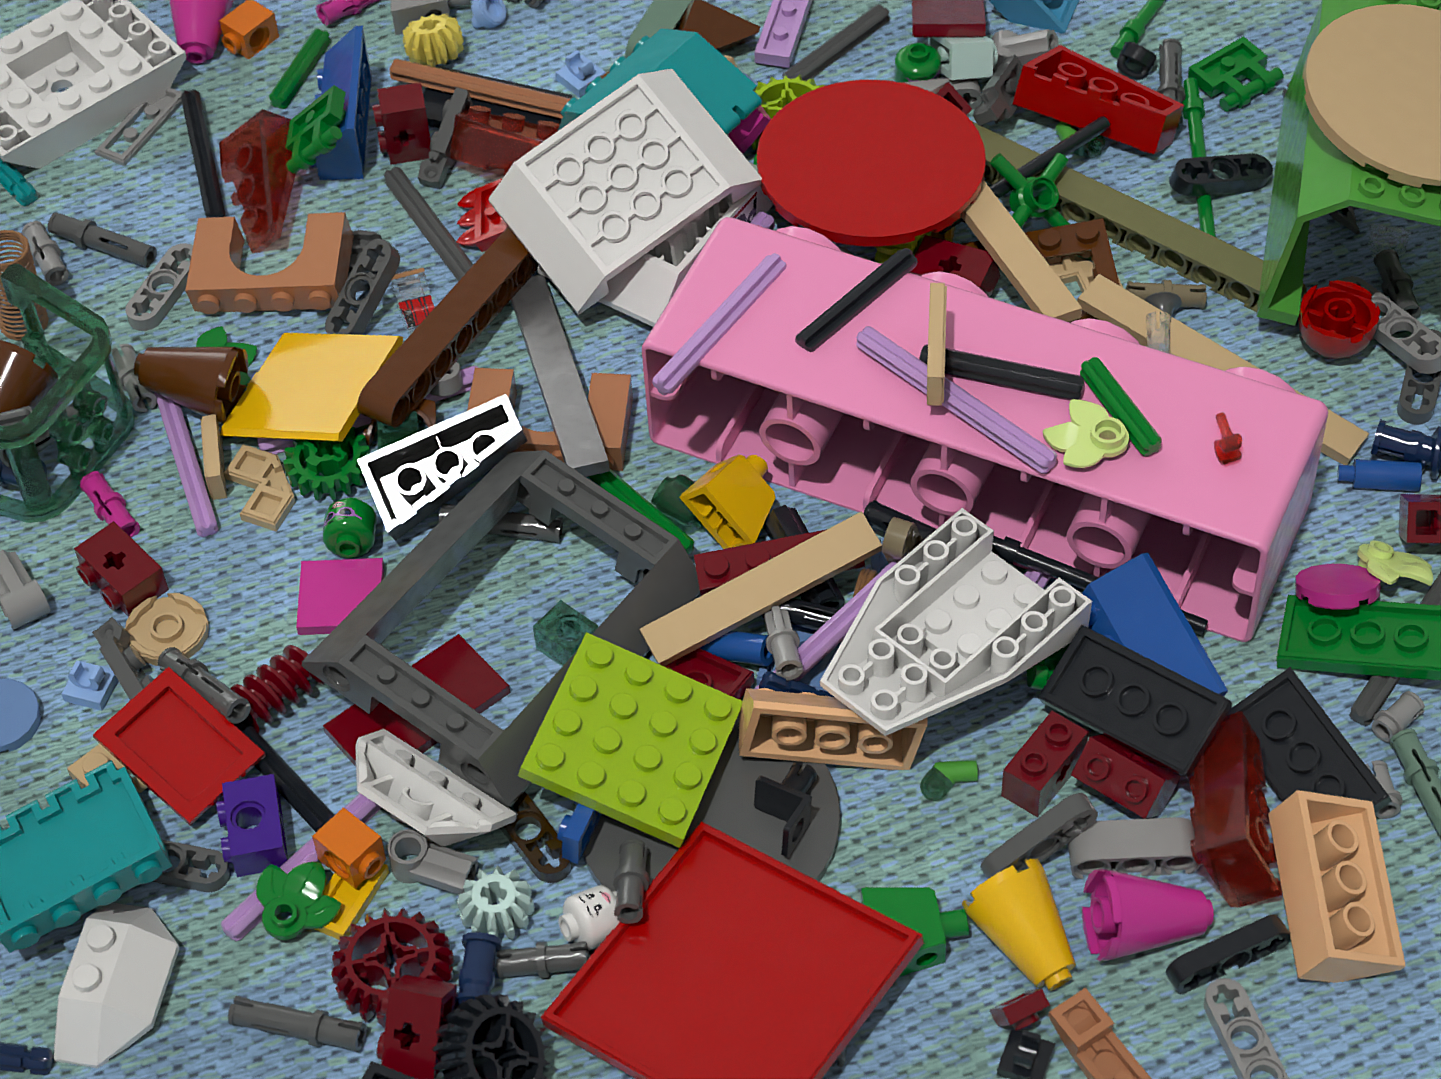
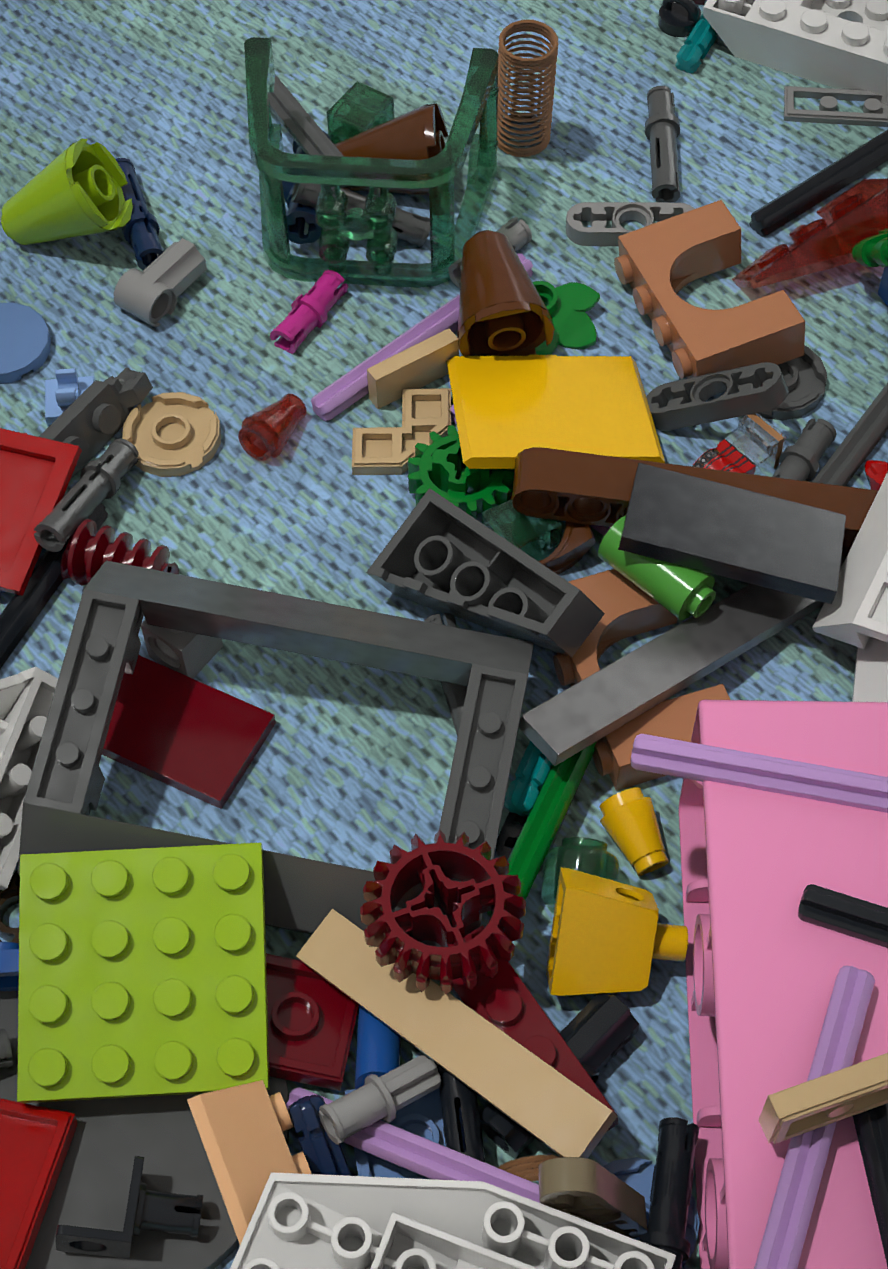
camera: 65 degrees right, 5 degrees up
(45, 253) = (615, 108): light grey pin -> none
(119, 569) = (222, 355): dark red brick -> none
(209, 563) = (269, 429): none -> clear red cone
(333, 590) = (287, 561): dark pink tile -> none
(349, 528) = (365, 533): green head -> none
(438, 273) = (802, 458): none -> dark grey pin
(493, 366) = (673, 586): none -> bright green brick
(497, 310) = (734, 533): none -> black tile
(557, 627) = (316, 814): clear green brick -> none
(655, 464) = (635, 829): none -> yellow cone
(713, 555) = (482, 889): none -> dark red gear

